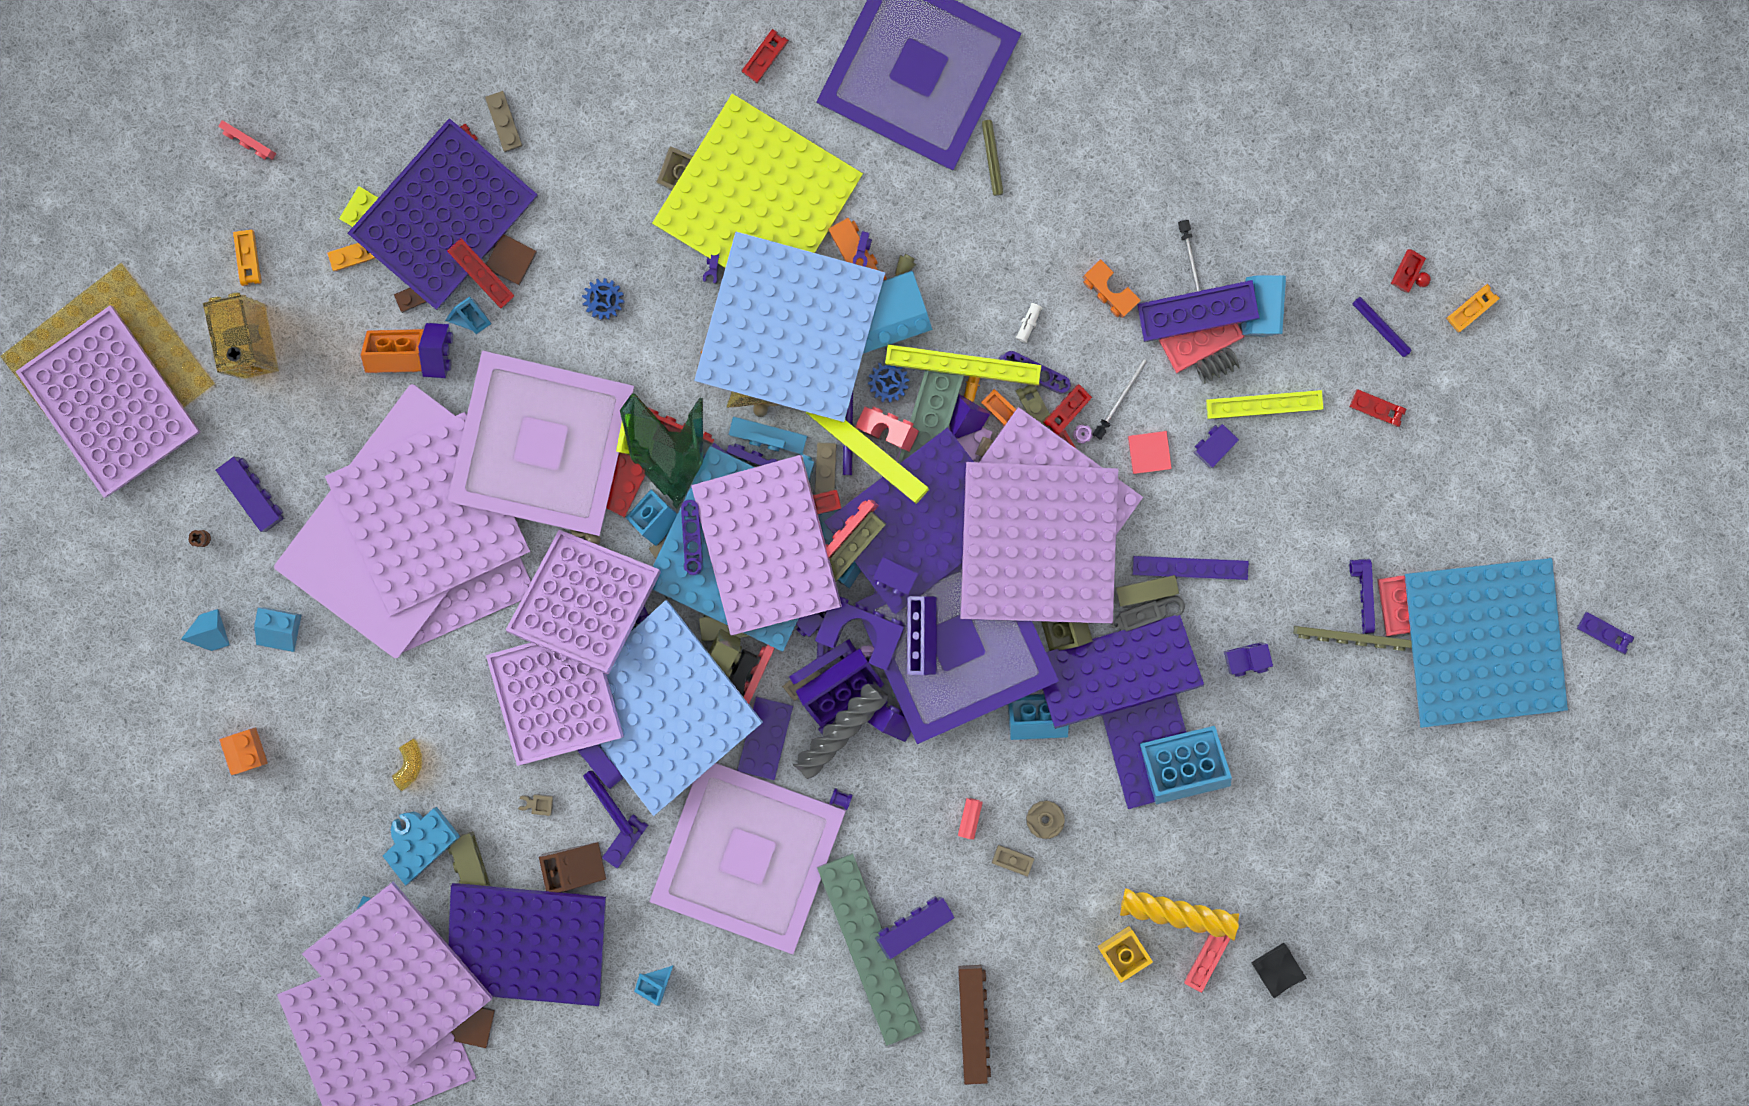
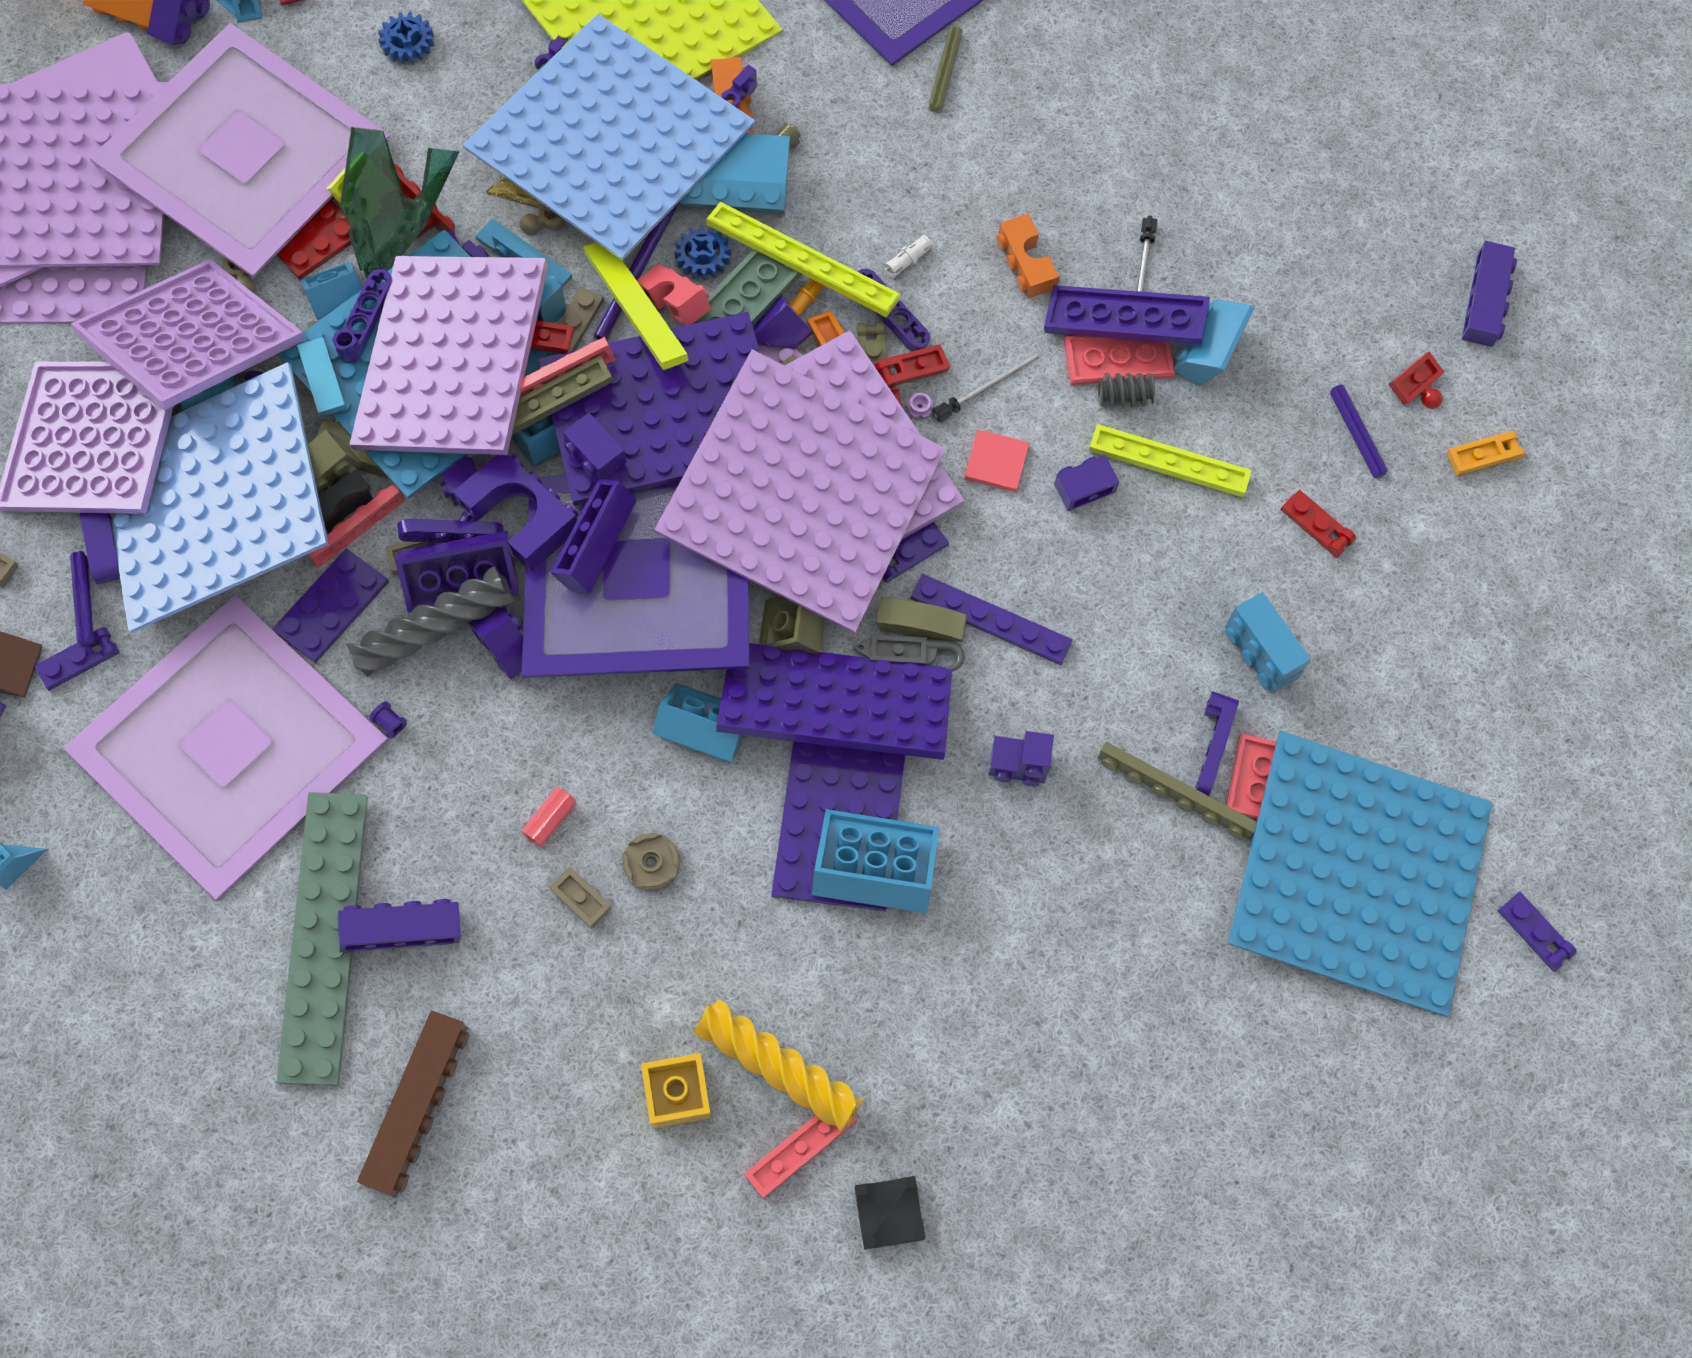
camera: 15 degrees right, 20 degrees down
(686, 593) = (321, 377): none -> medium azure tile
(1125, 537) = (915, 550): none -> dark purple plate
(1376, 516) = (1266, 643): none -> dark azure piece
(1437, 182) = (1488, 294): none -> dark purple brick

